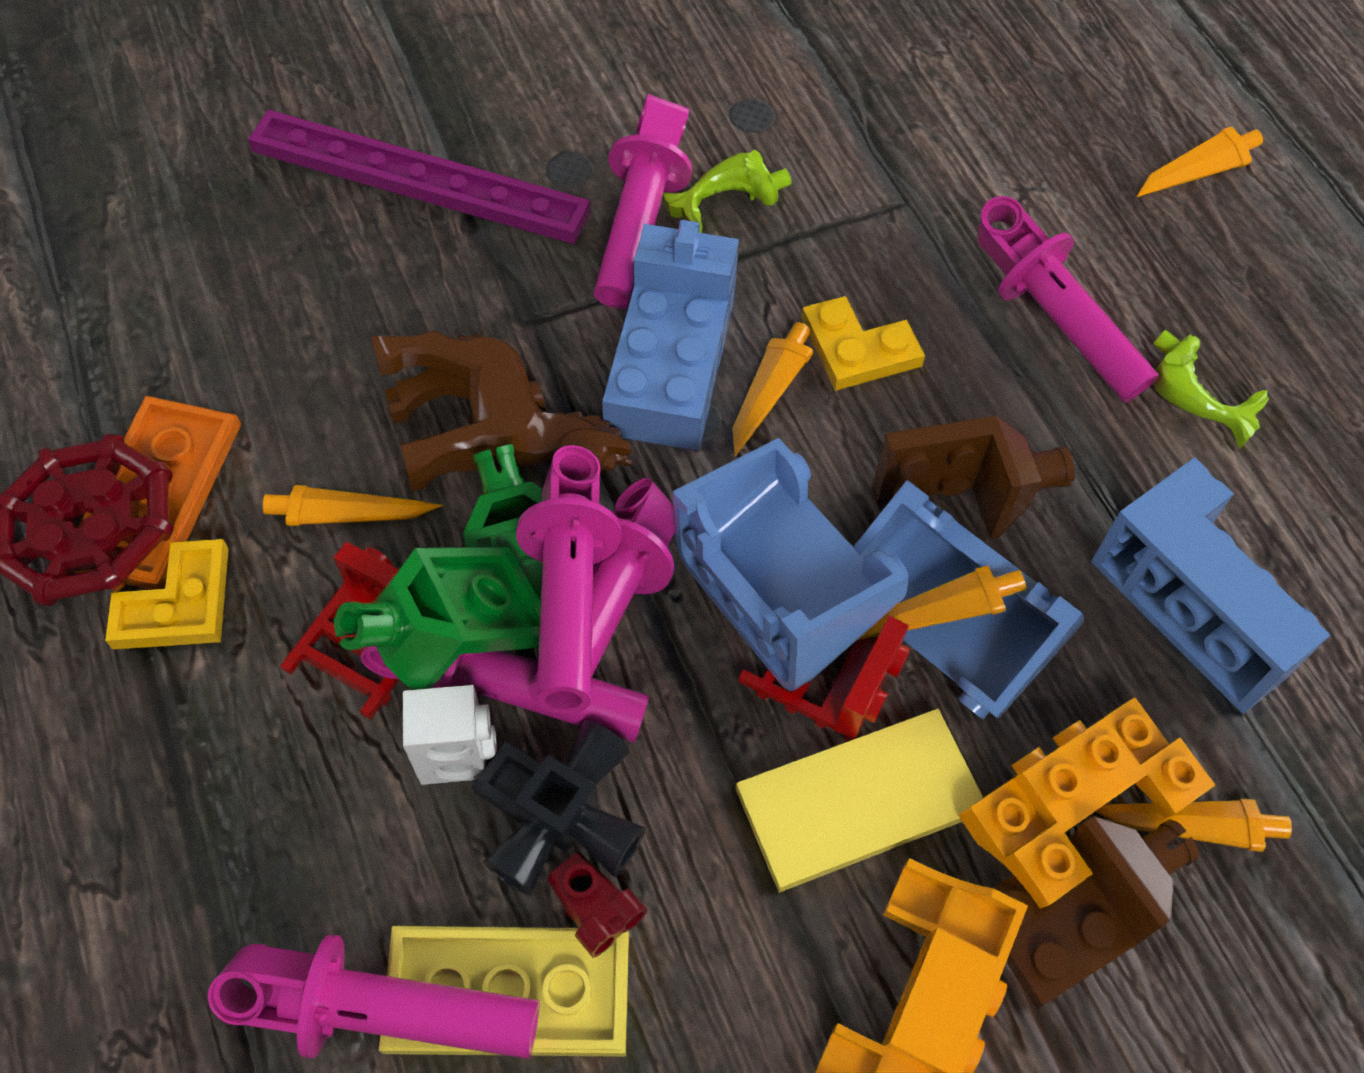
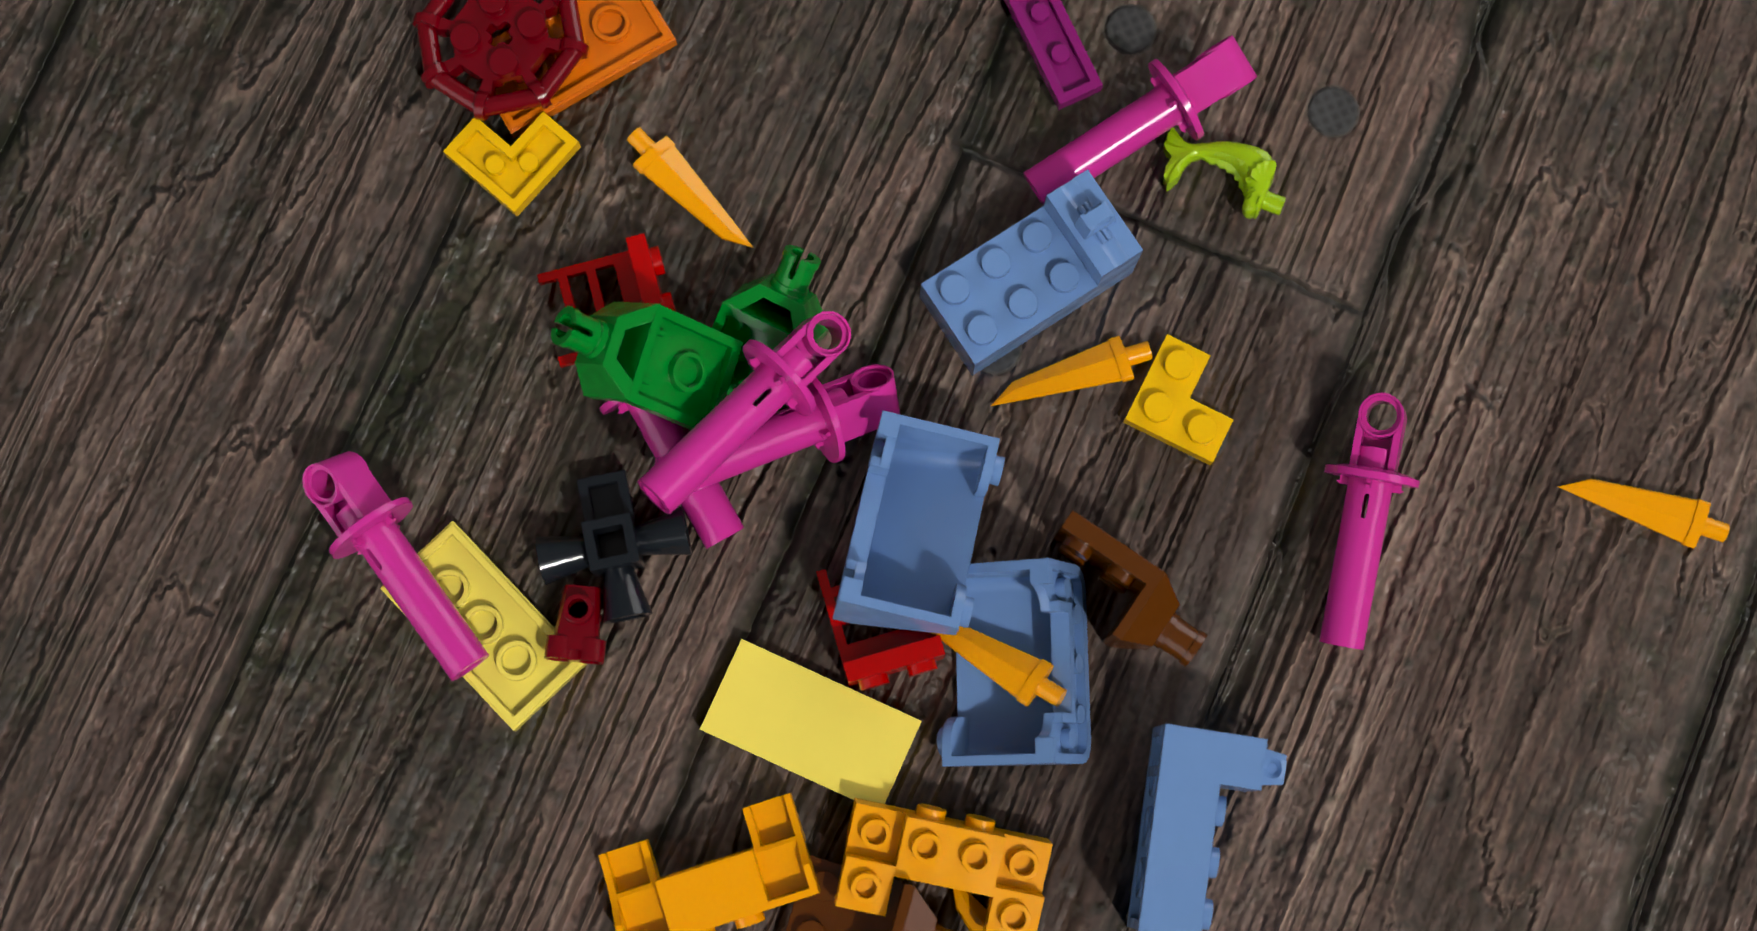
camera: 45 degrees right, 20 degrees up
(447, 734) = (587, 434): white brick -> none
(501, 404) = (856, 213): reddish brown animal -> none
(1180, 387) = (1375, 671): lime animal -> none

